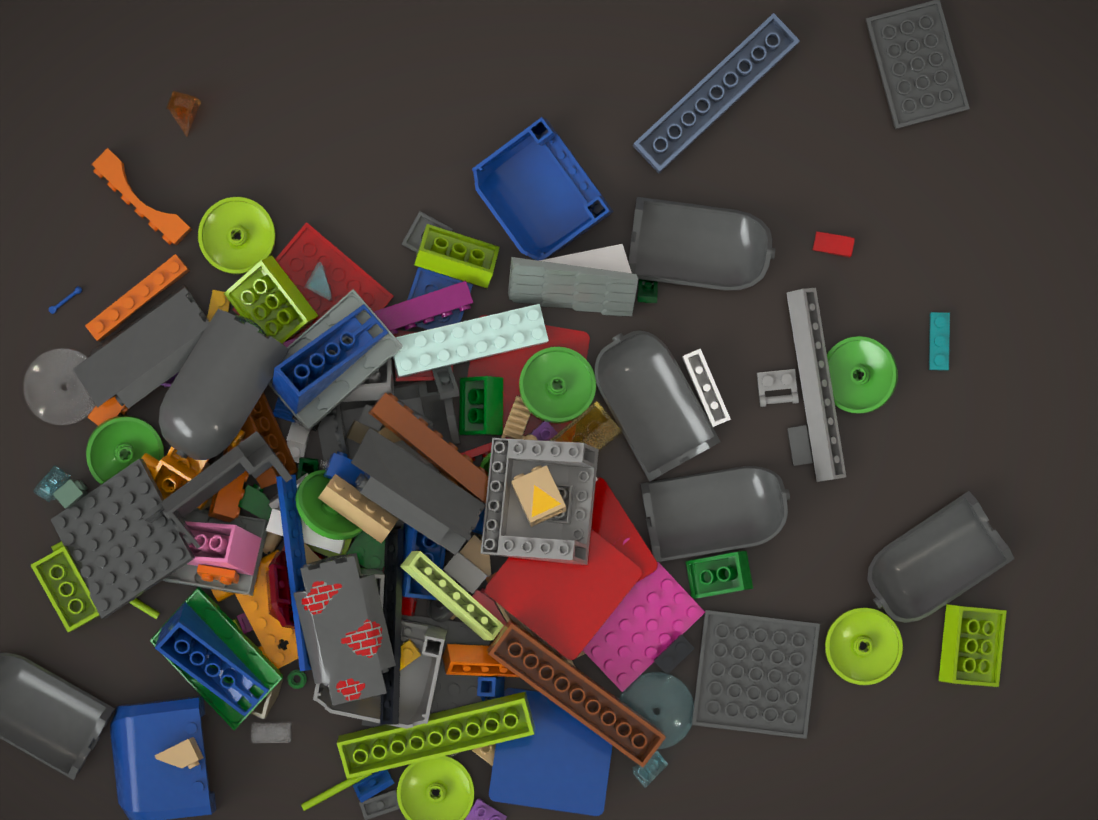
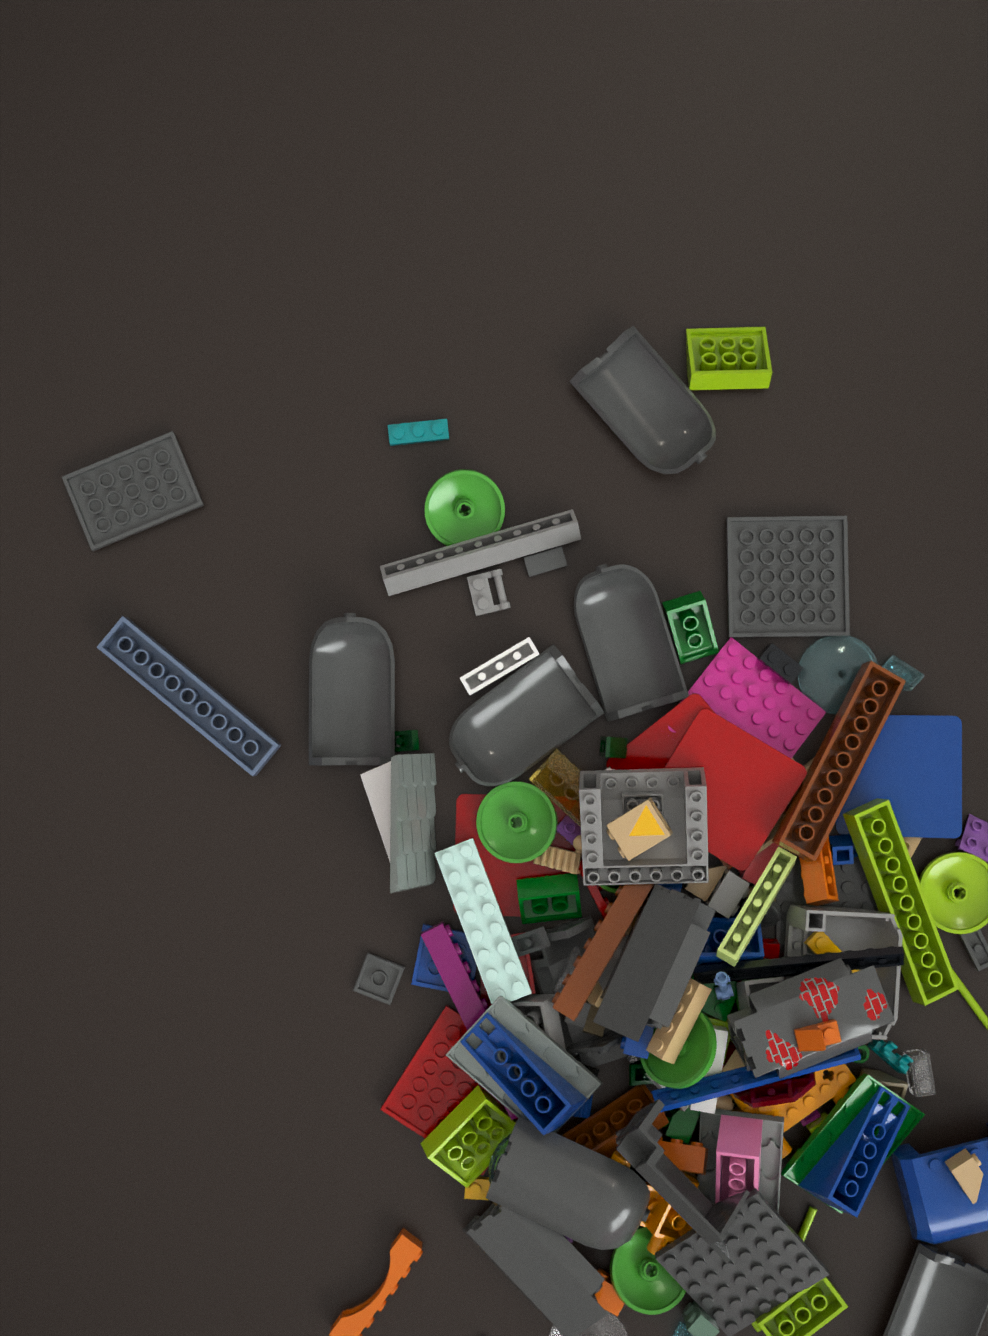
camera: 95 degrees left, 0 degrees up
(135, 298) = (501, 1297): orange arch -> none
(183, 109) = (278, 1254): clear orange slope -> none
(211, 573) = (768, 1150): orange plate -> none
(221, 225) = (399, 1200): lime dish -> none
(285, 711) = (884, 1051): none -> teal plate
(297, 441) = (612, 1086): white slope -> none
(318, 282) = (442, 1088): clear light blue slope -> none
(330, 630) = (817, 1036): none -> orange slope
(373, 784) = (959, 959): blue plate -> none
(376, 556) = (724, 990): none -> light blue bar
(457, 256) = (395, 946): lime slope -> none
(539, 192) = (316, 869): blue slope -> none
(615, 485) = (613, 747): none -> dark green slope
(833, 244) = (332, 553): red slope -> none
(881, 652) = (755, 454): lime dish -> none

